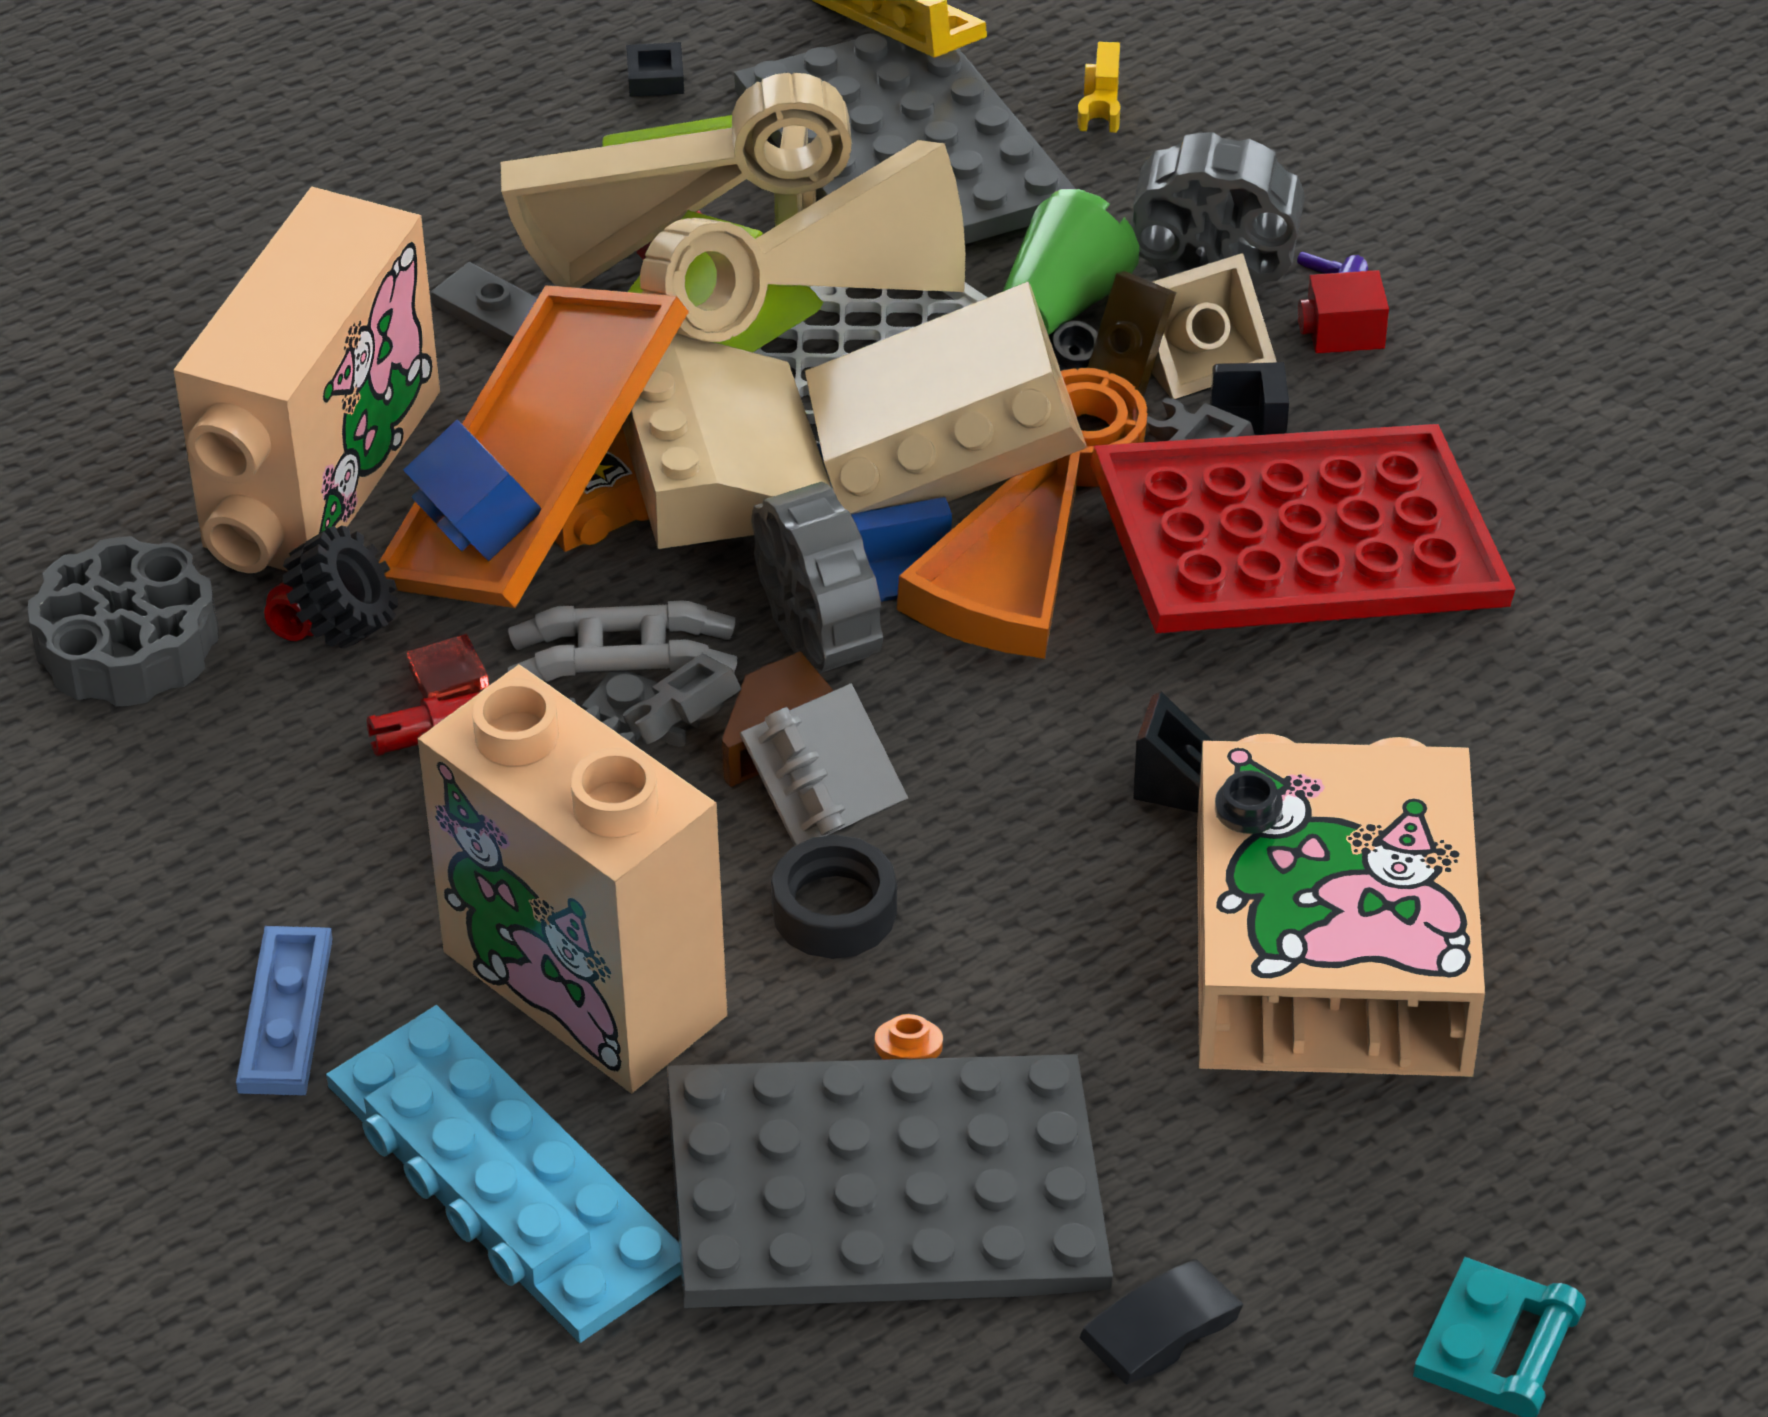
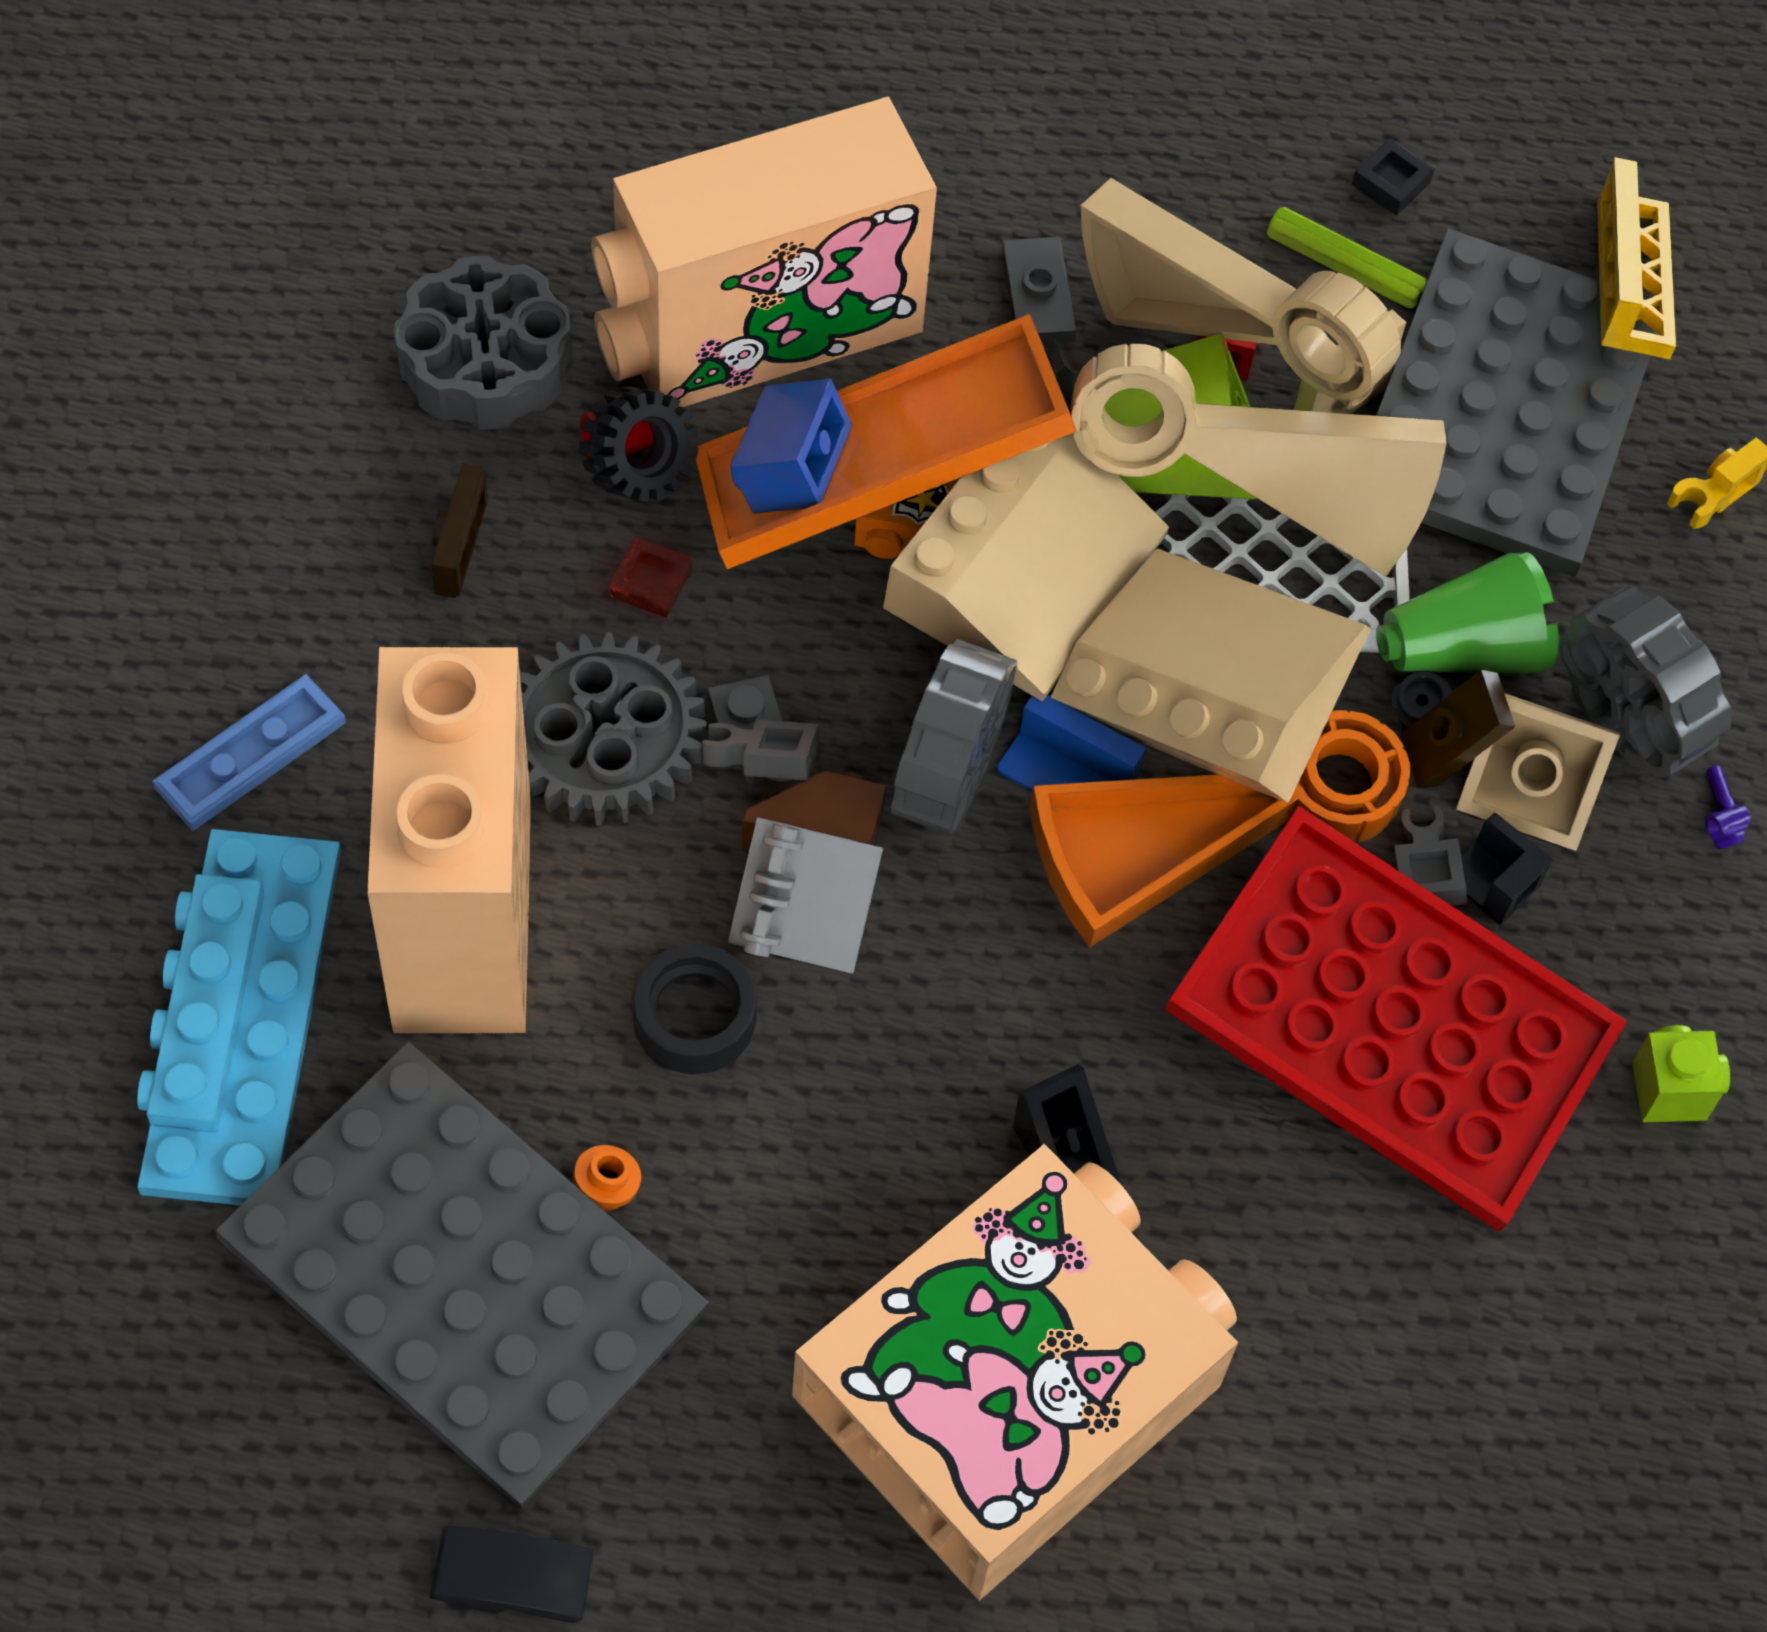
camera: 40 degrees right, 15 degrees up
(266, 748) = (458, 530): none -> dark brown plate
(411, 723) = (594, 608): red pin -> none
(592, 622) = (800, 690): light grey piece -> none
(1248, 802) = (998, 1234): black plate -> none
(1345, 312) = (1675, 852): red brick -> none
(1508, 427) = (1679, 1075): none -> lime brick

